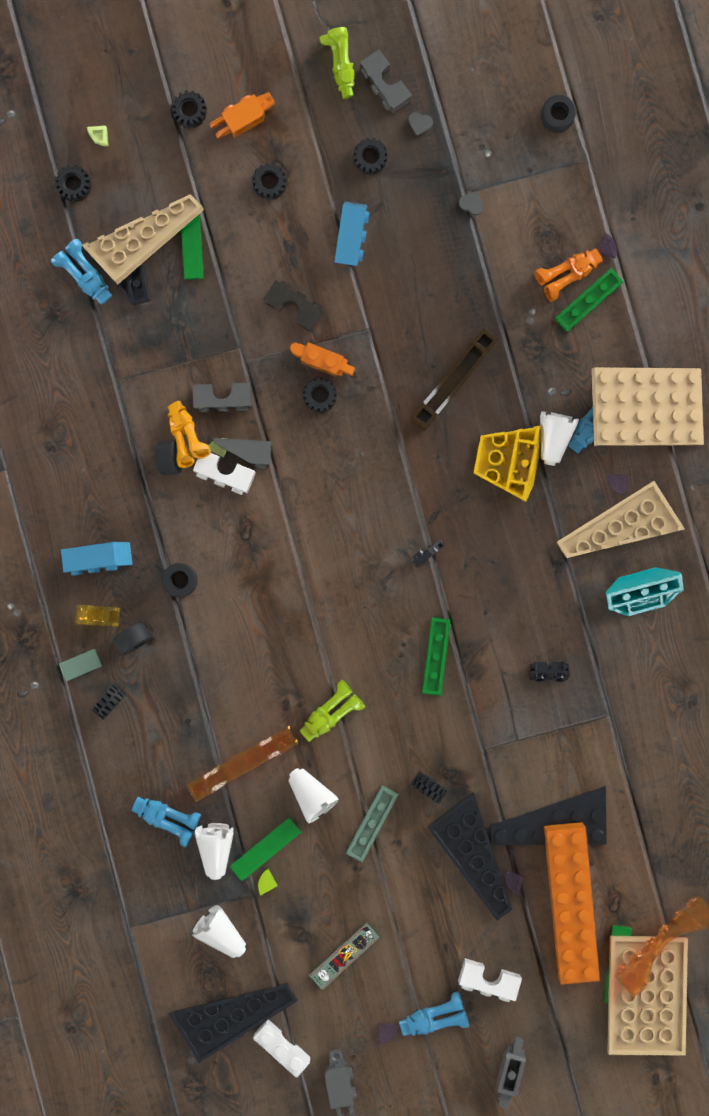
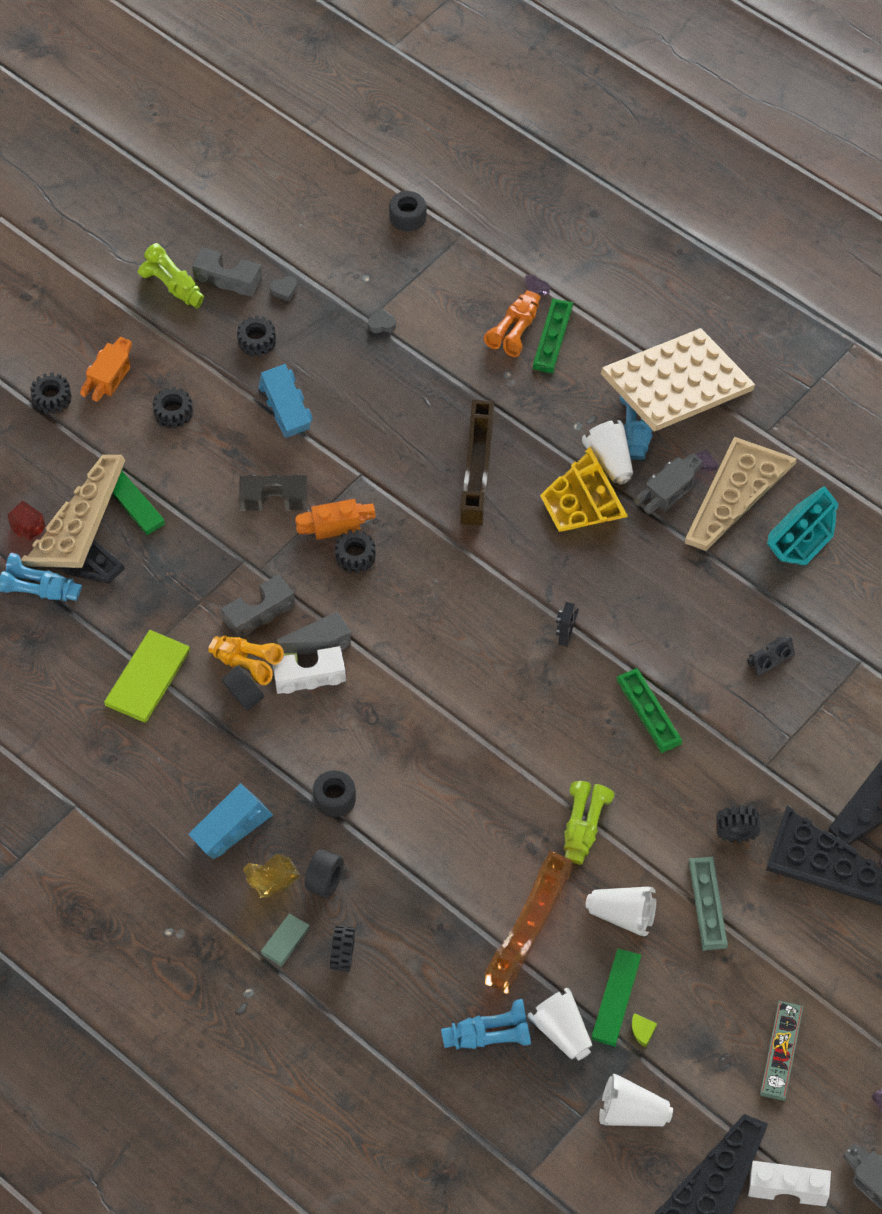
camera: 30 degrees left, 30 degrees down
(104, 214) = (26, 521): none -> clear red brick
(113, 400) = (147, 676): none -> lime tile
(580, 489) = (670, 484): none -> dark grey hinge

